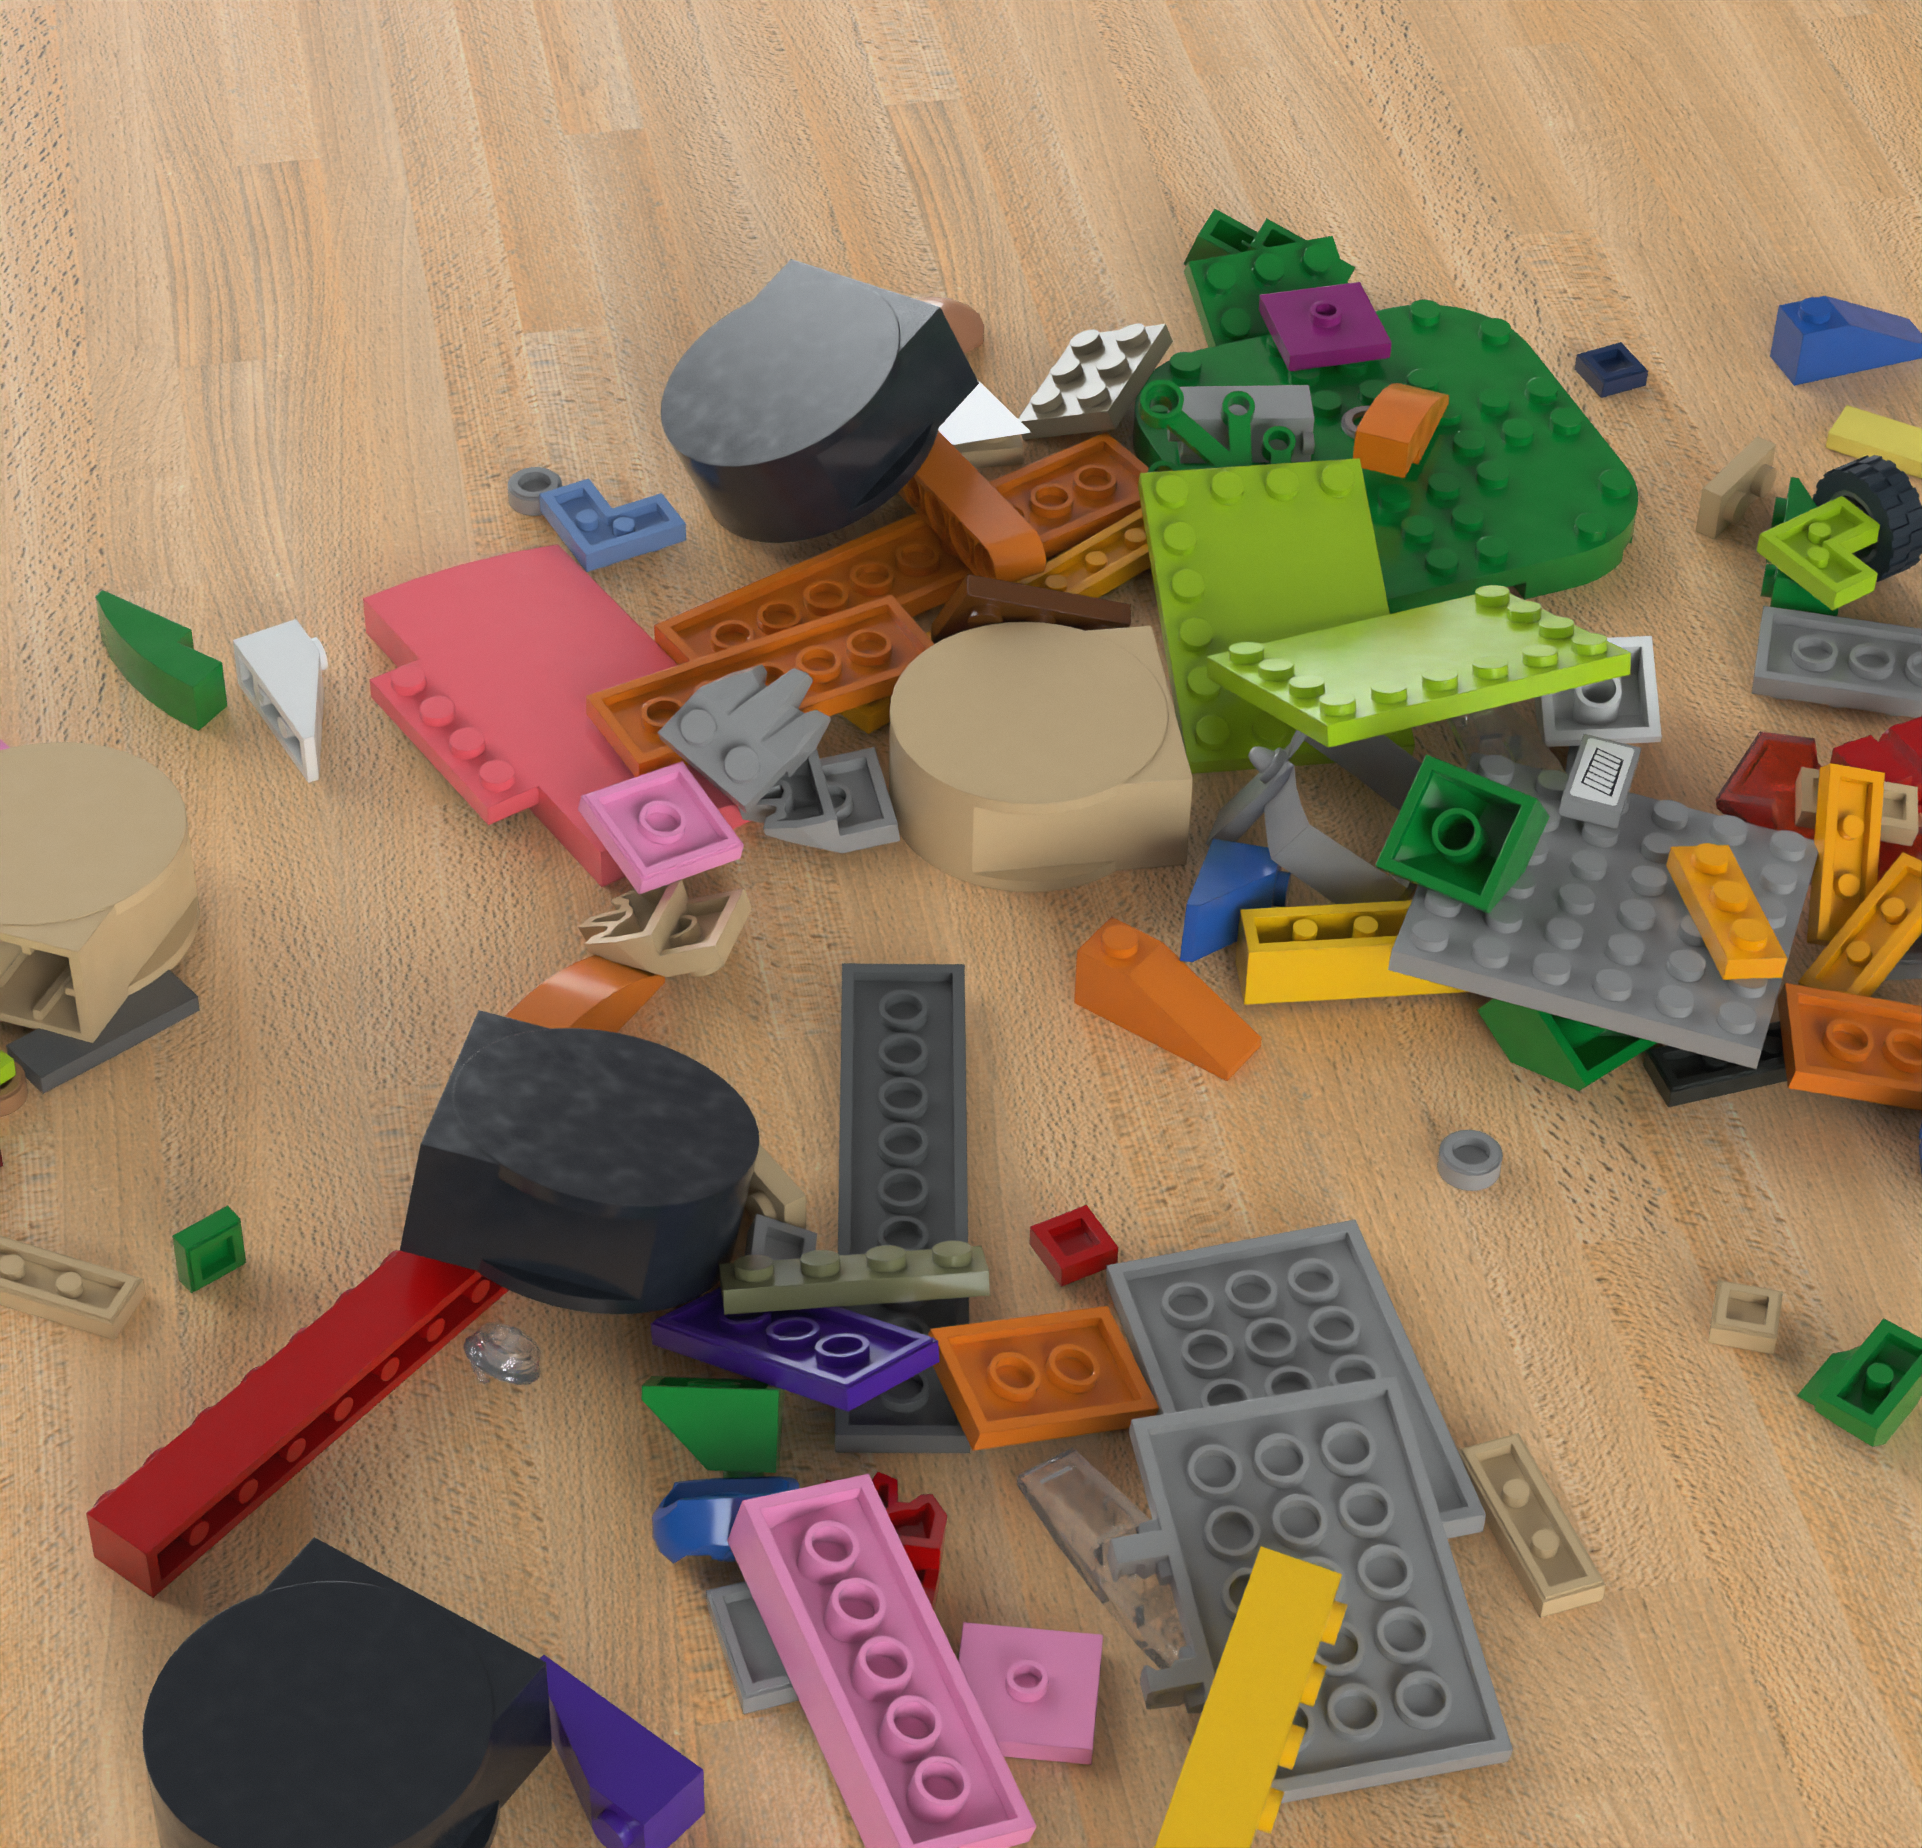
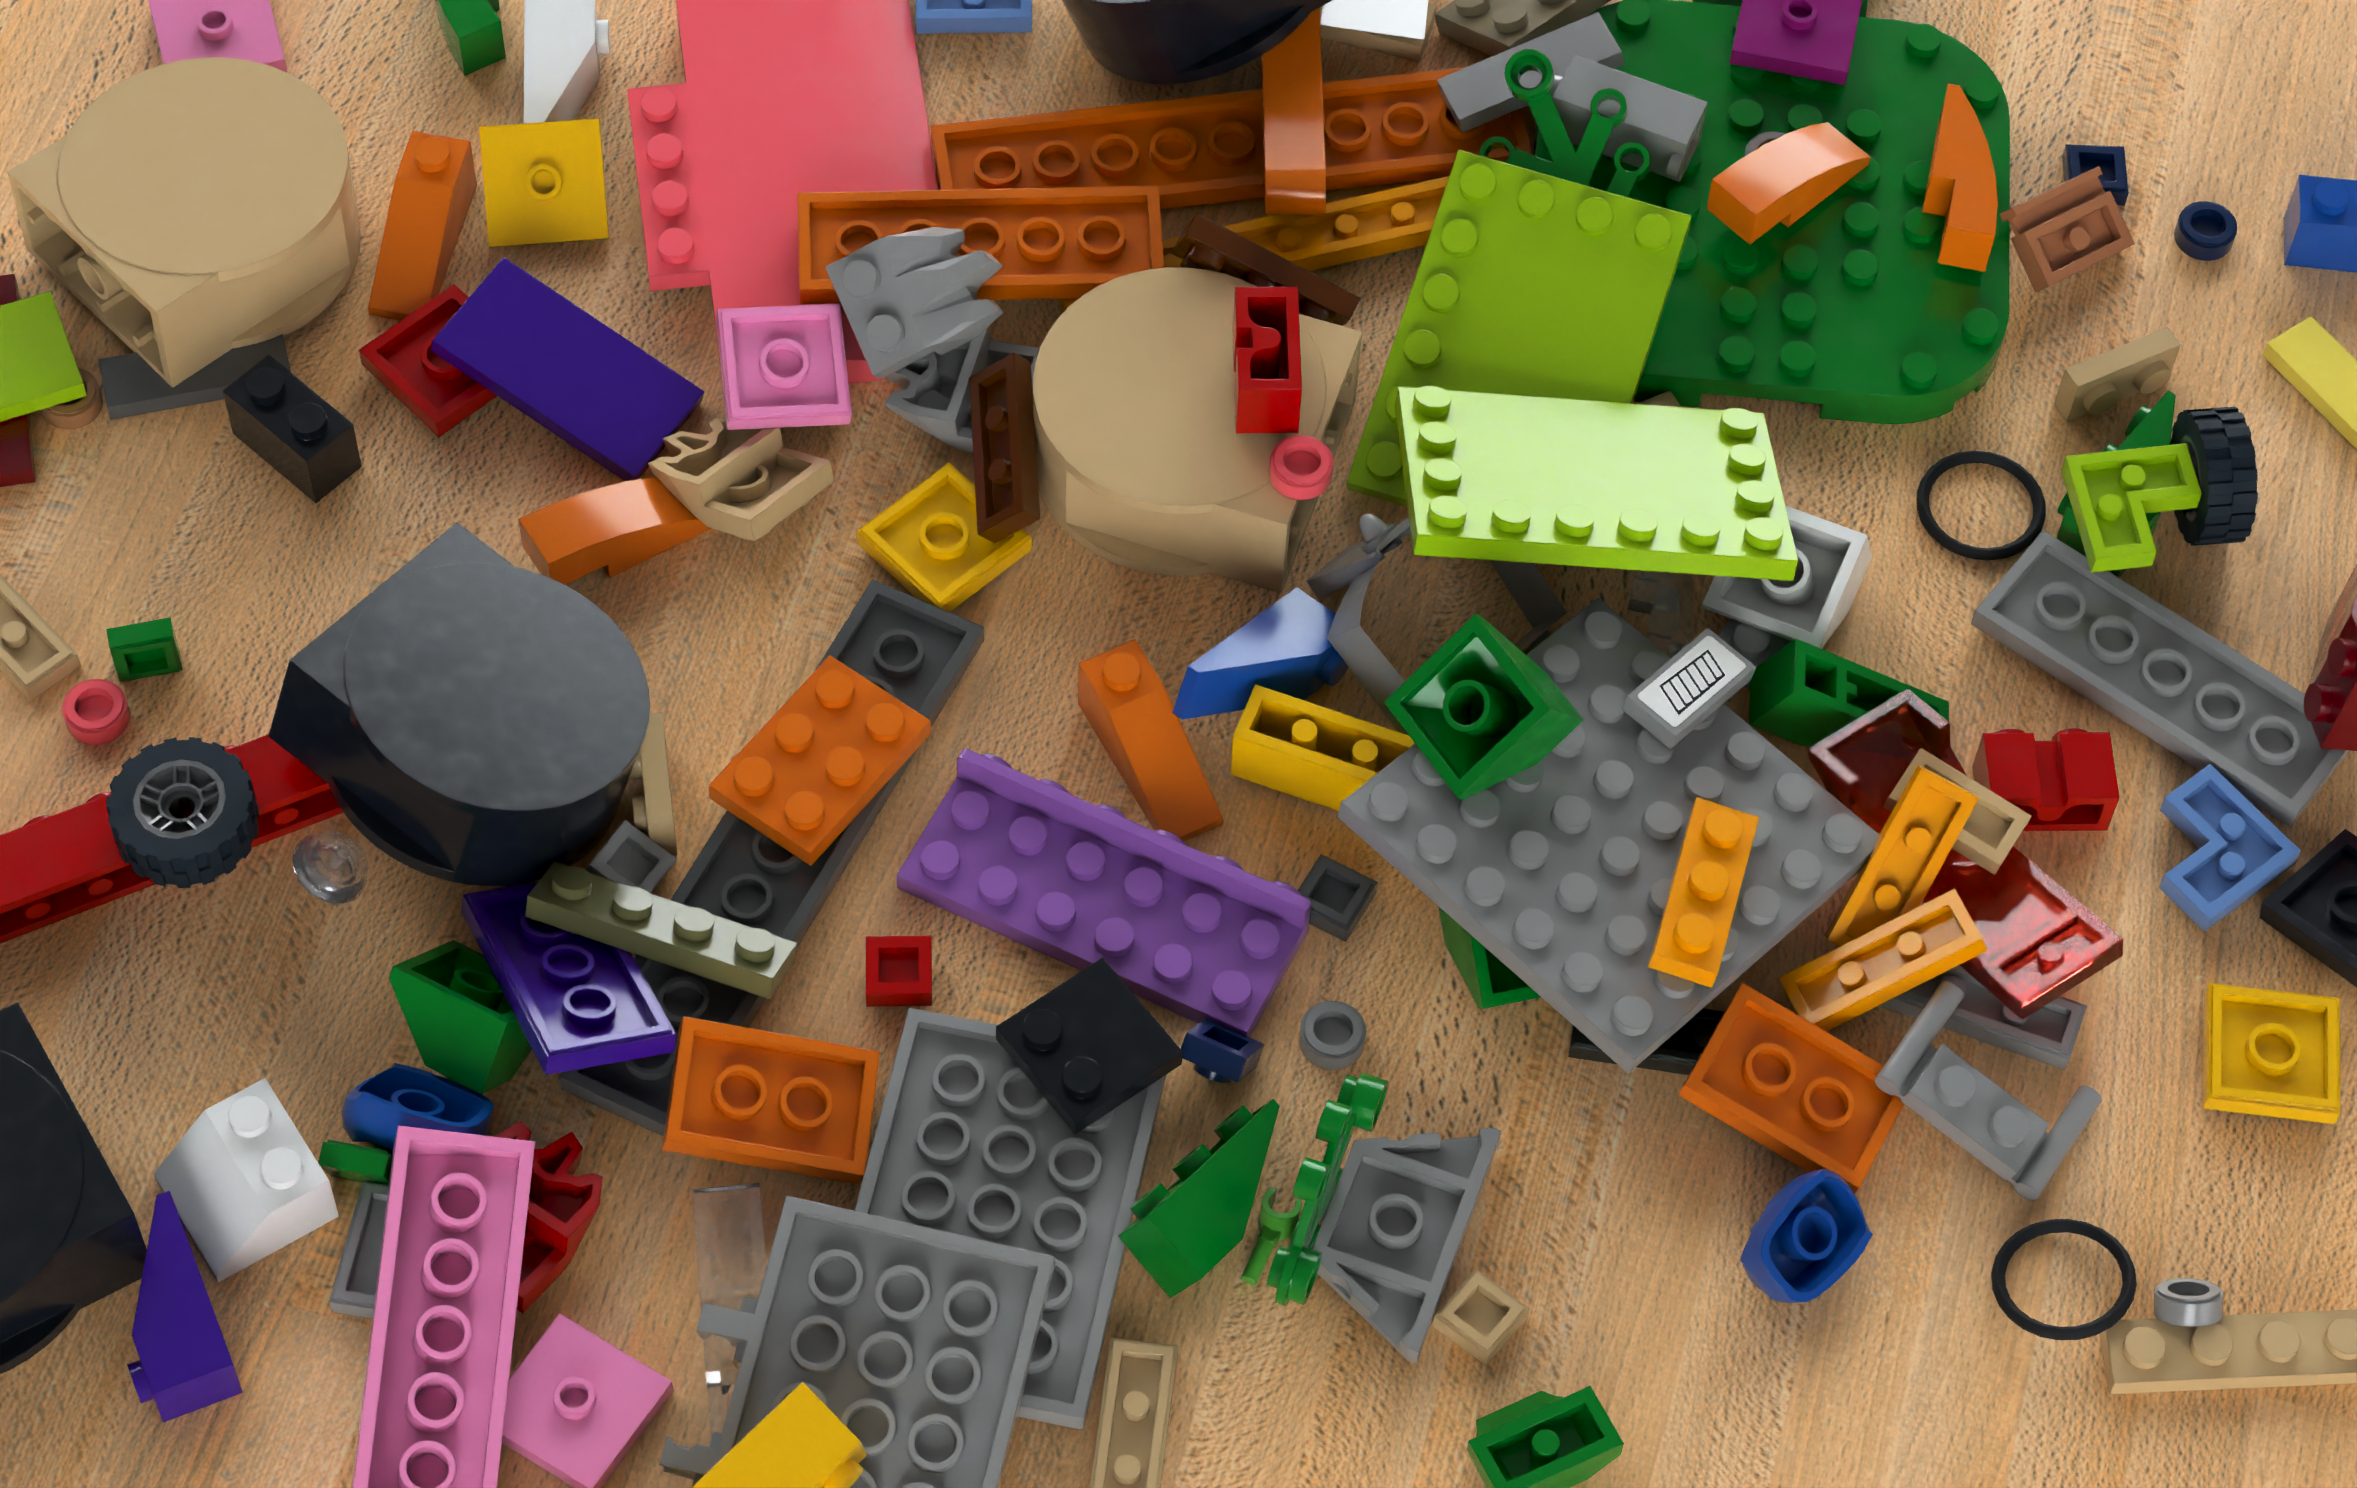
camera: 25 degrees right, 15 degrees up
(189, 1321) = (96, 712): none -> coral tile
(234, 1031) = (292, 428): none -> black brick
(247, 843) = (422, 223): none -> orange slope
(338, 936) = (417, 376): none -> red plate
(341, 771) = (544, 182): none -> yellow plate
(355, 1342) = (152, 797): none -> black wheel
(459, 902) = (567, 371): none -> dark purple tile
(607, 1618) = (245, 1181): none -> white slope
(693, 1572) = (355, 1162): none -> green tile
(878, 916) = (934, 543): none -> yellow plate
(897, 821) = (1004, 448): none -> reddish brown plate
(897, 1107) = (820, 760): none -> orange plate
(1105, 652) = (1267, 360): none -> red brick
(1122, 434) = (1481, 91): none -> light grey tile
(1177, 731) = (1301, 467): none -> coral tile
(1207, 1123) = (1099, 886): none -> medium lavender bracket
(1285, 1231) = (1089, 1045): none -> black plate
(1393, 1202) = (1220, 1052): none -> dark blue plate
(1395, 1061) = (1337, 896): none -> dark grey tile
(1471, 1316) = (1207, 1210): none -> green slope
(1528, 1316) = (1273, 1228): none -> bright green hand
(1538, 385) = (1962, 185): none -> orange slope
(1588, 1314) = (1357, 1106): none -> green plant
(1626, 404) = (2067, 229): none -> nougat plate
(1637, 1276) = (1401, 1227): none -> light grey wing
(1684, 767) = (1814, 693): none -> green slope
(1690, 646) = (1968, 551): none -> black tyre
(1722, 379) = (2205, 230): none -> dark blue tile

